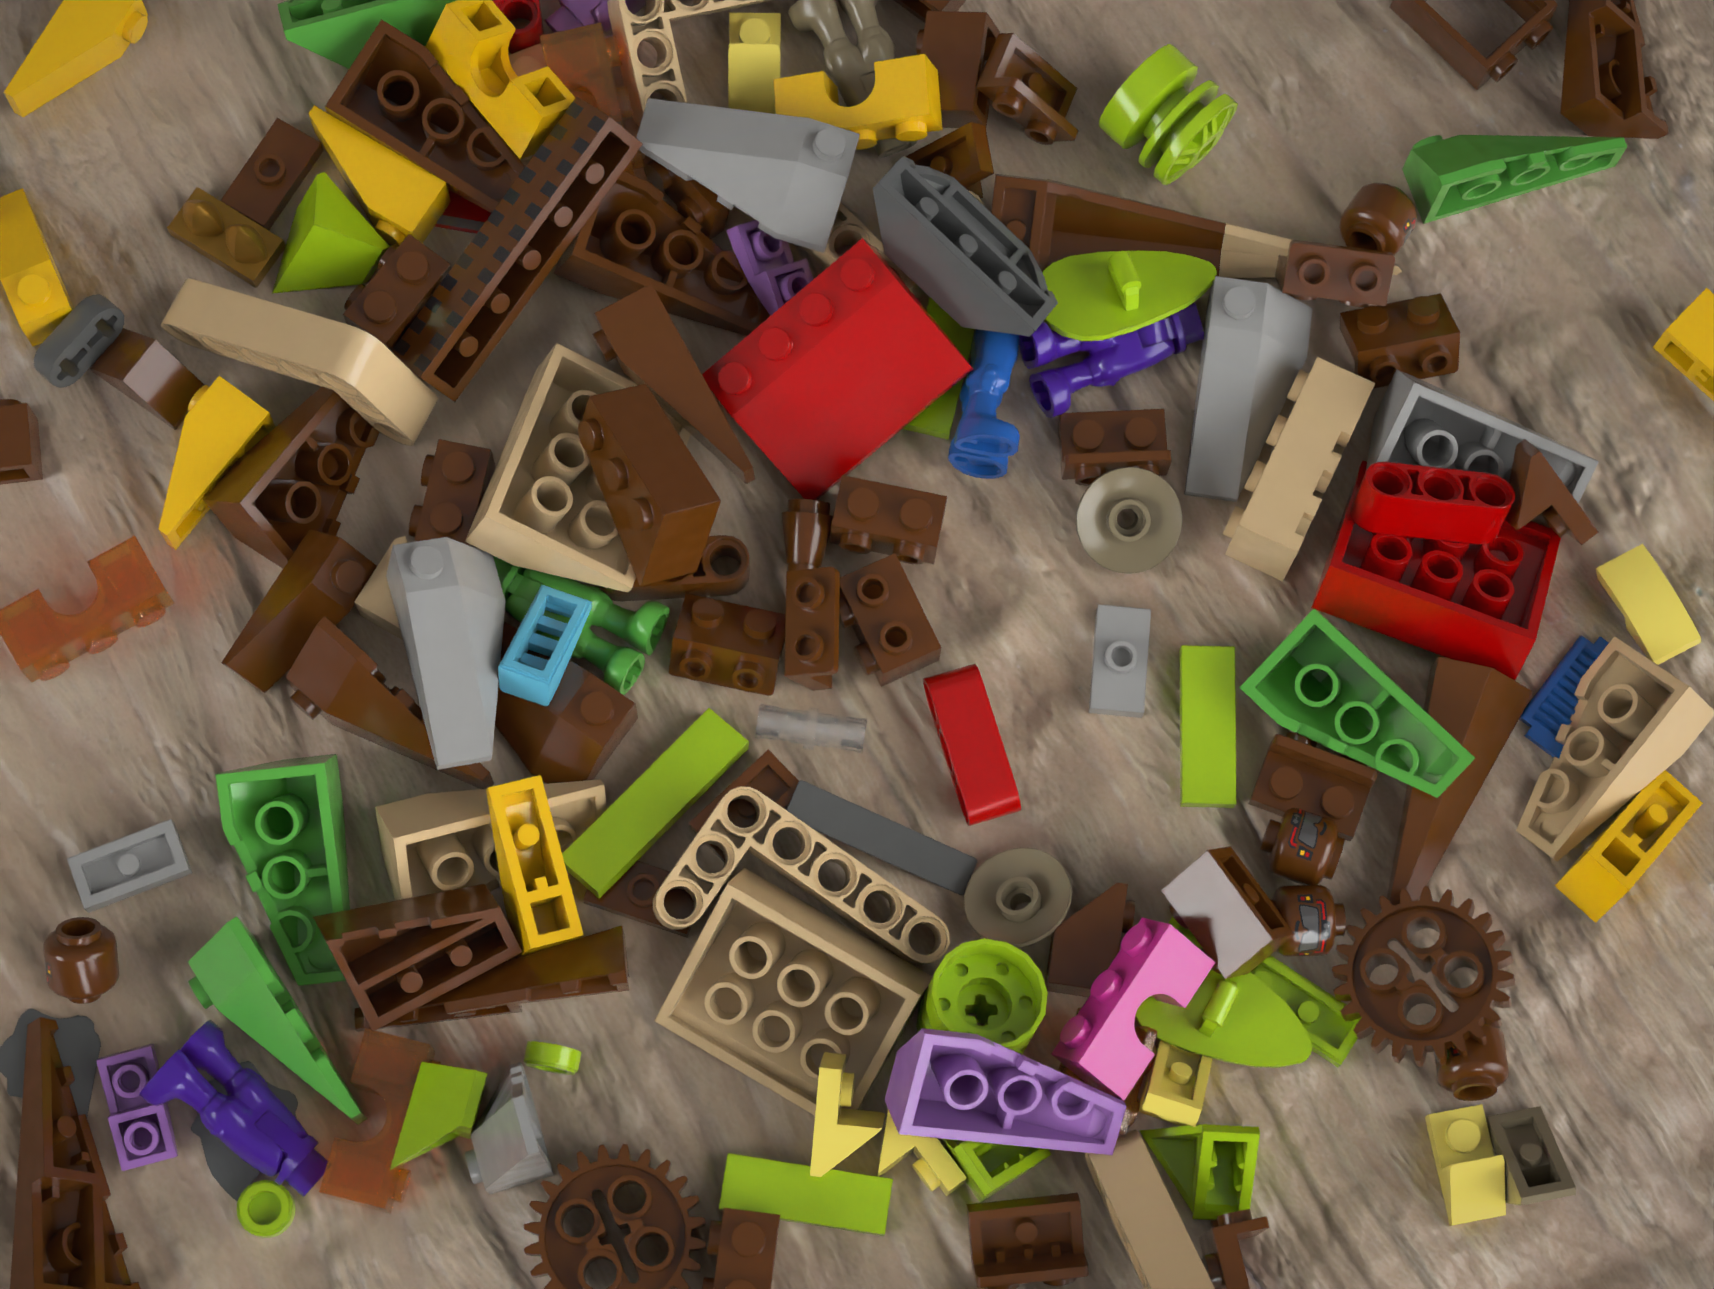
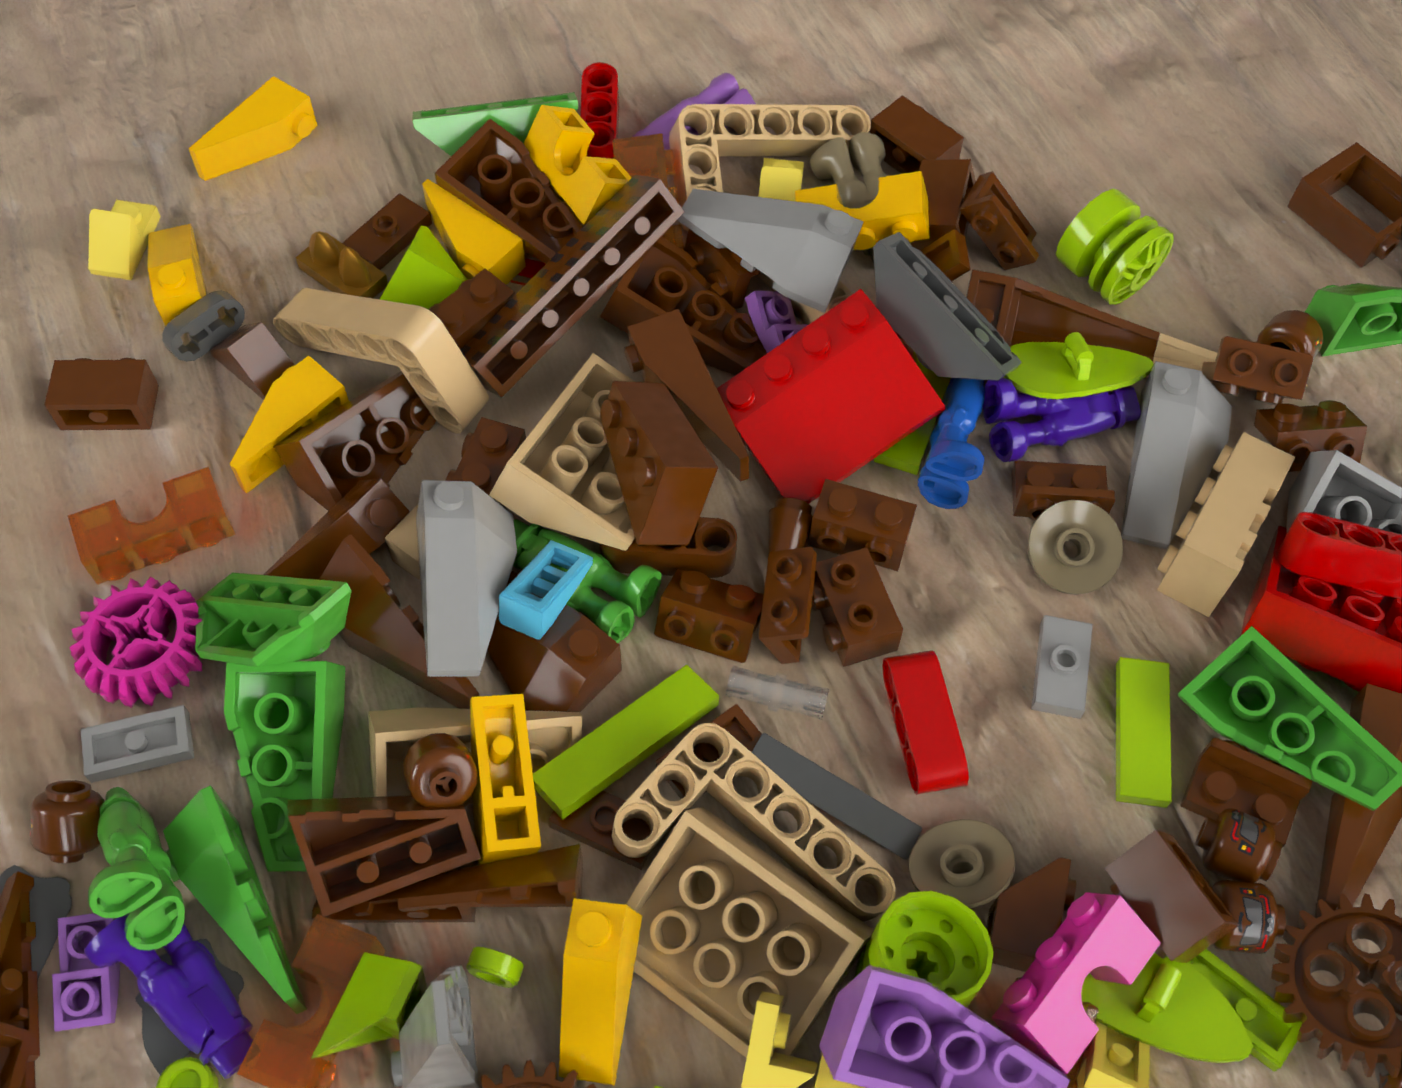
camera: 10 degrees right, 15 degrees down
(100, 772) = (142, 656): none -> dark pink gear
(188, 1027) = (138, 875): none -> bright green piece
(243, 717) = (269, 619): none -> bright green wedge
(467, 869) = (440, 771): none -> reddish brown head
(658, 1068) = (596, 988): none -> yellow slope

